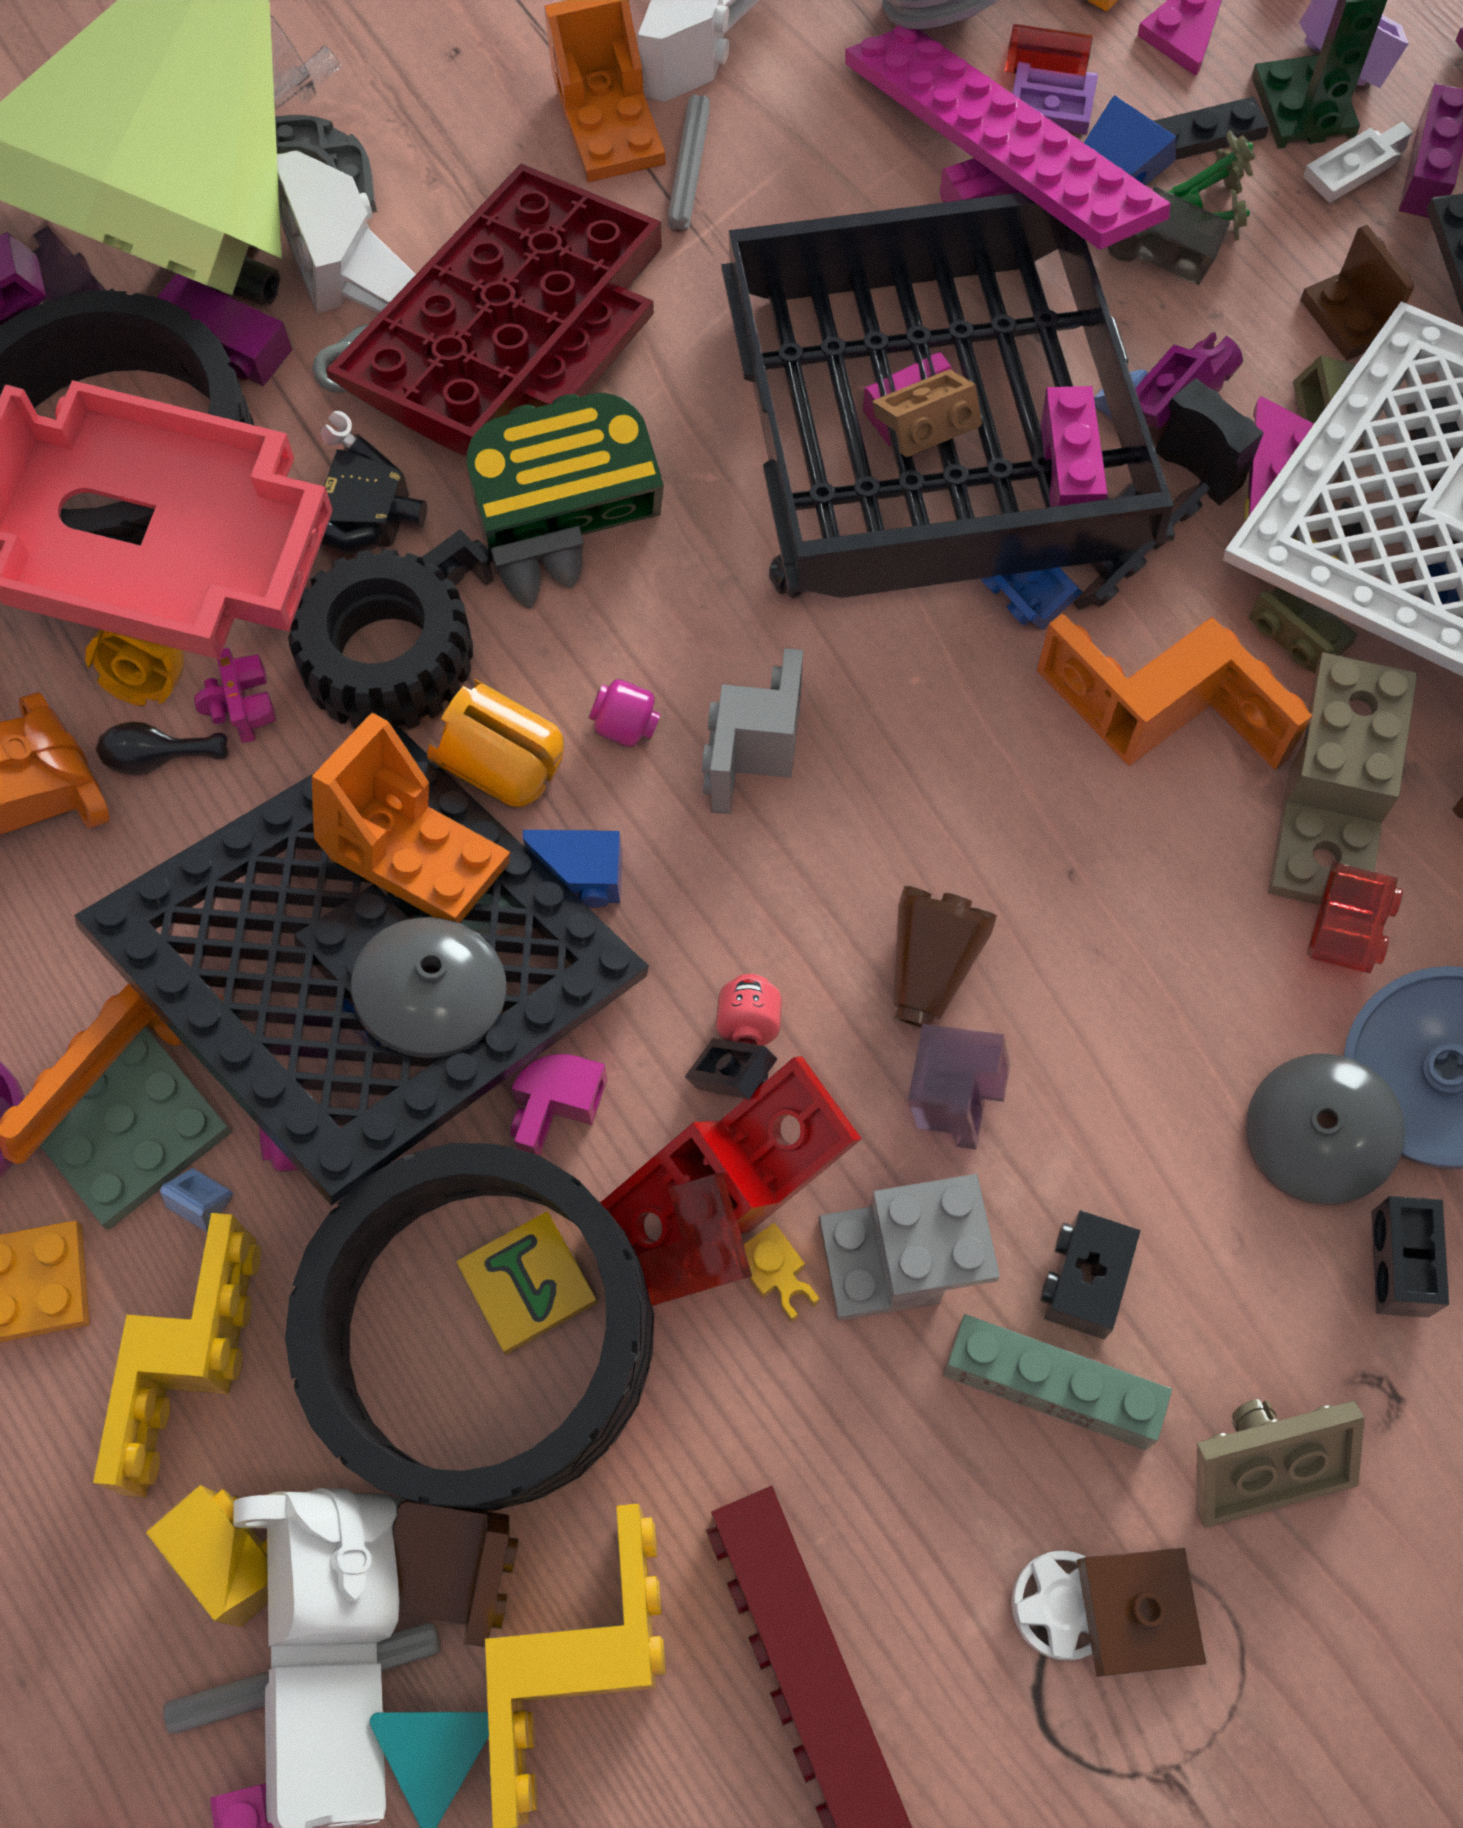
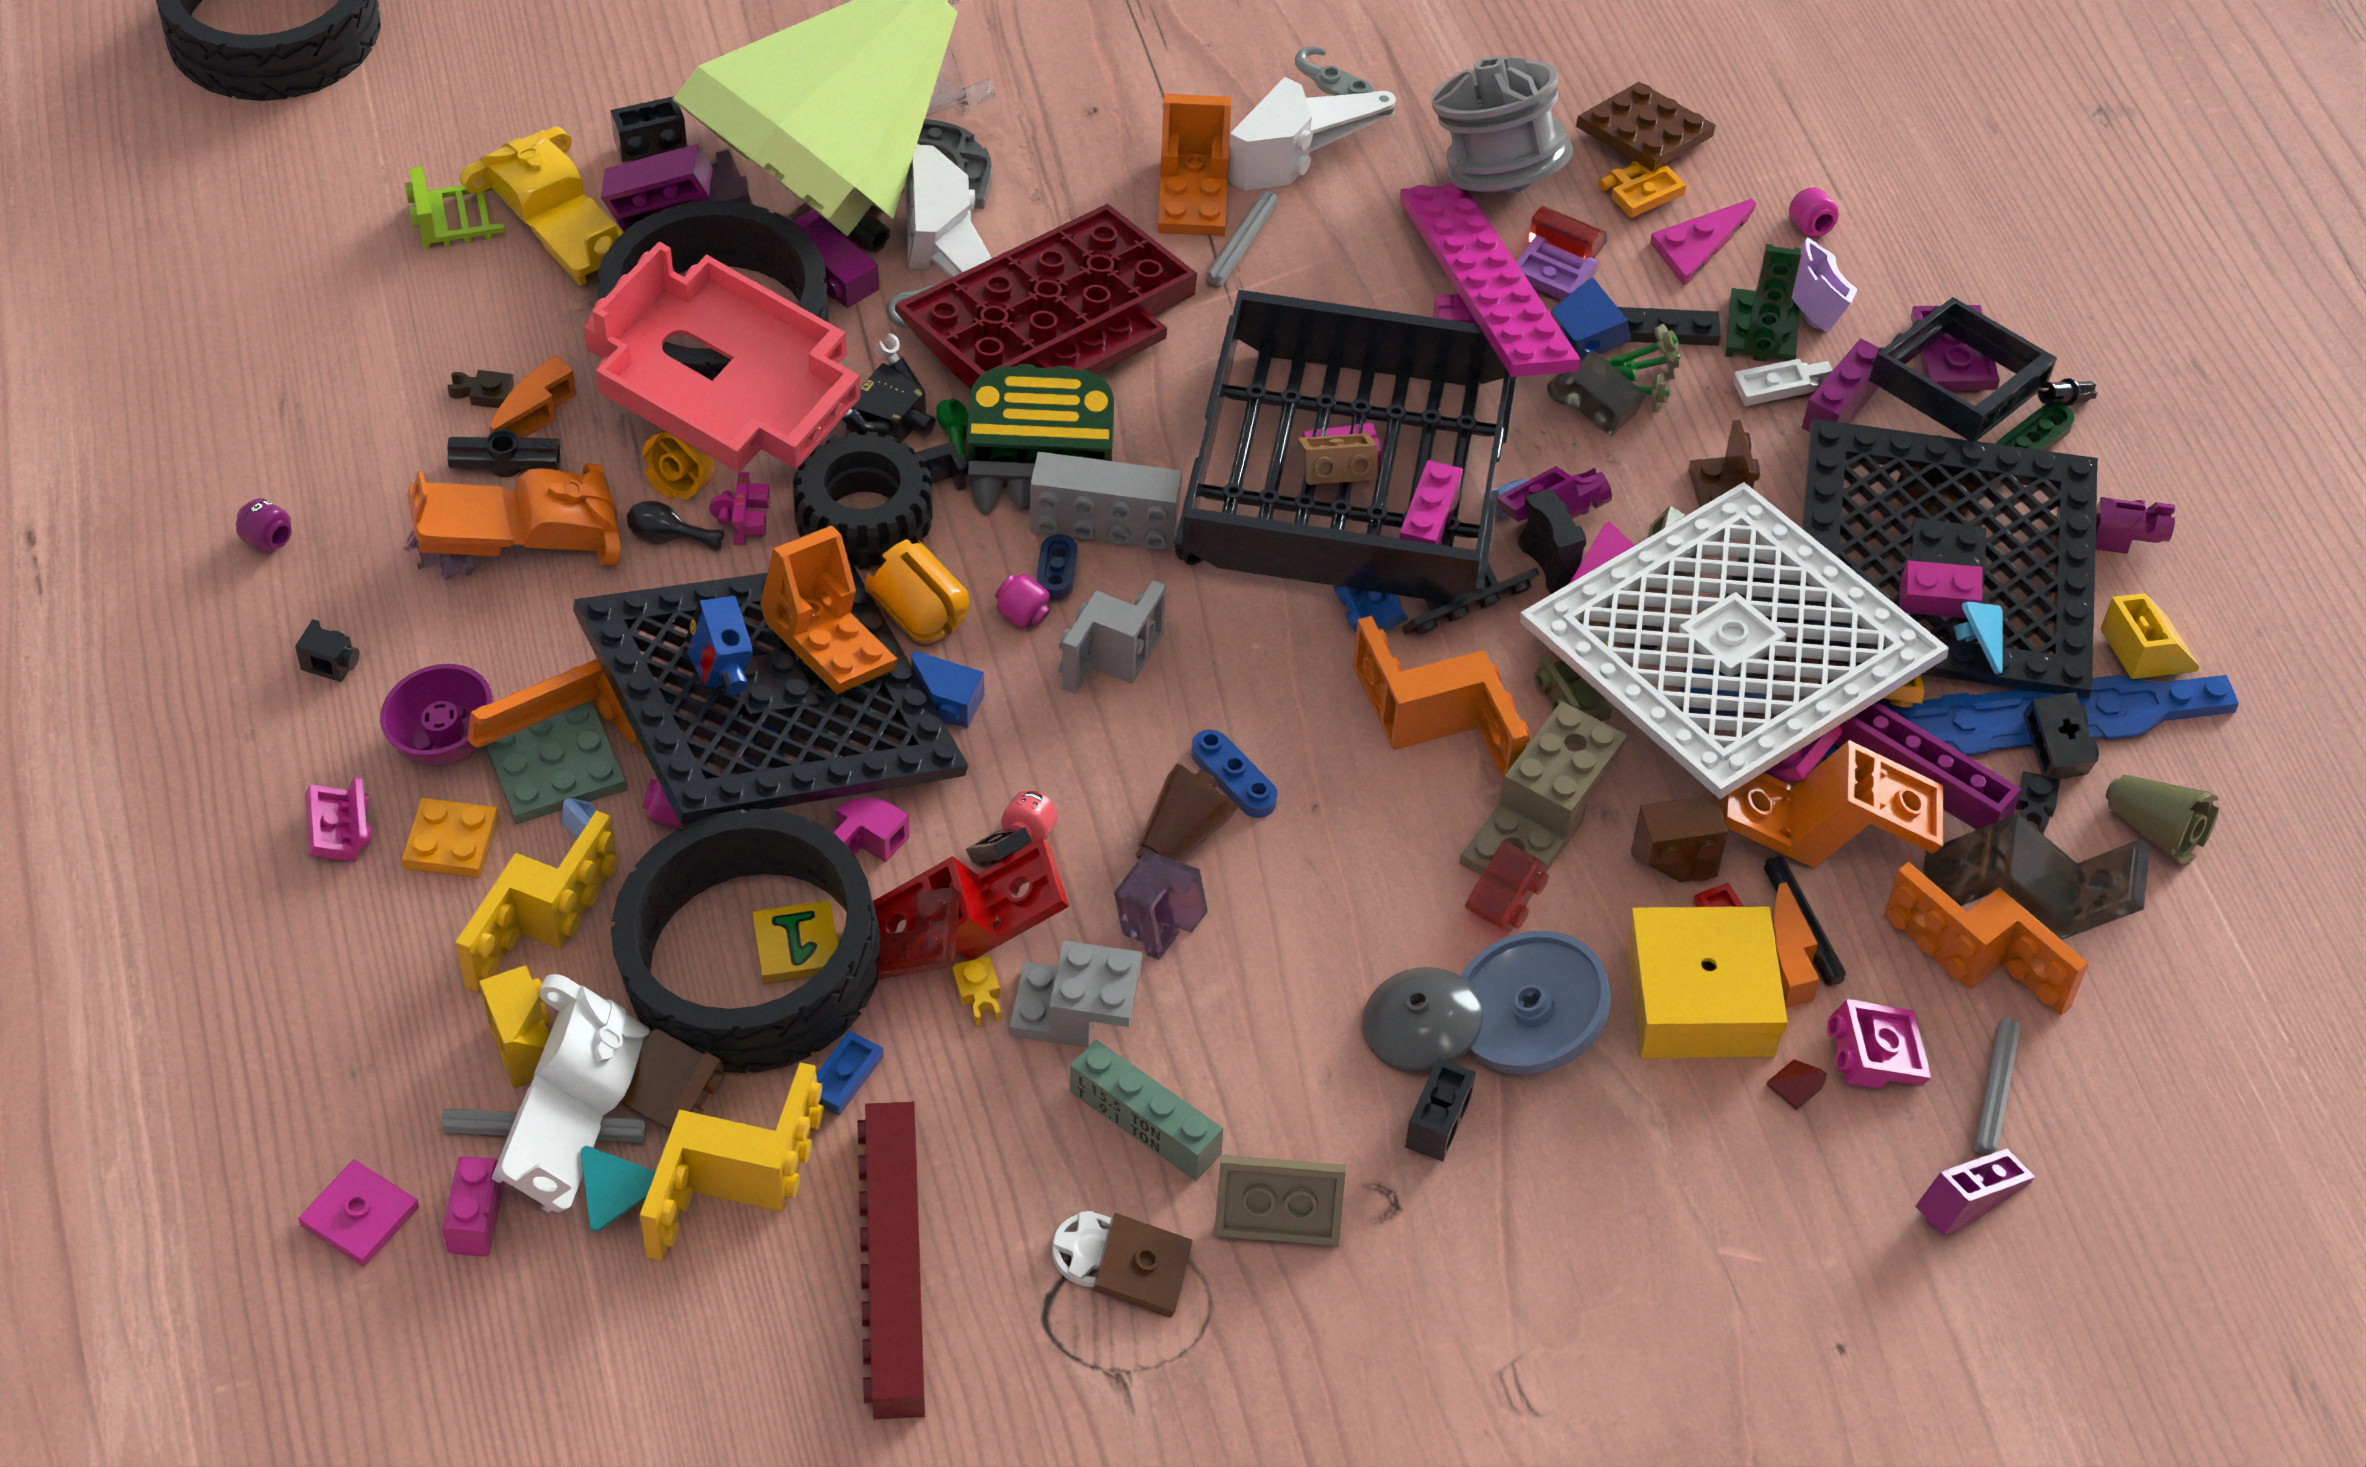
camera: 15 degrees right, 15 degrees down
(289, 926) = (719, 644): none -> blue torso
(422, 1010) = (802, 719): dark grey dish -> none
(447, 493) = (953, 418): none -> green plate
(646, 655) = (1054, 572): none -> dark blue plate
(660, 1458) = (847, 1070): none -> blue plate
(675, 550) = (1105, 501): none -> light grey brick
(974, 877) = (1236, 784): none -> blue plate
(1110, 1252) = (1203, 1054): black brick -> none

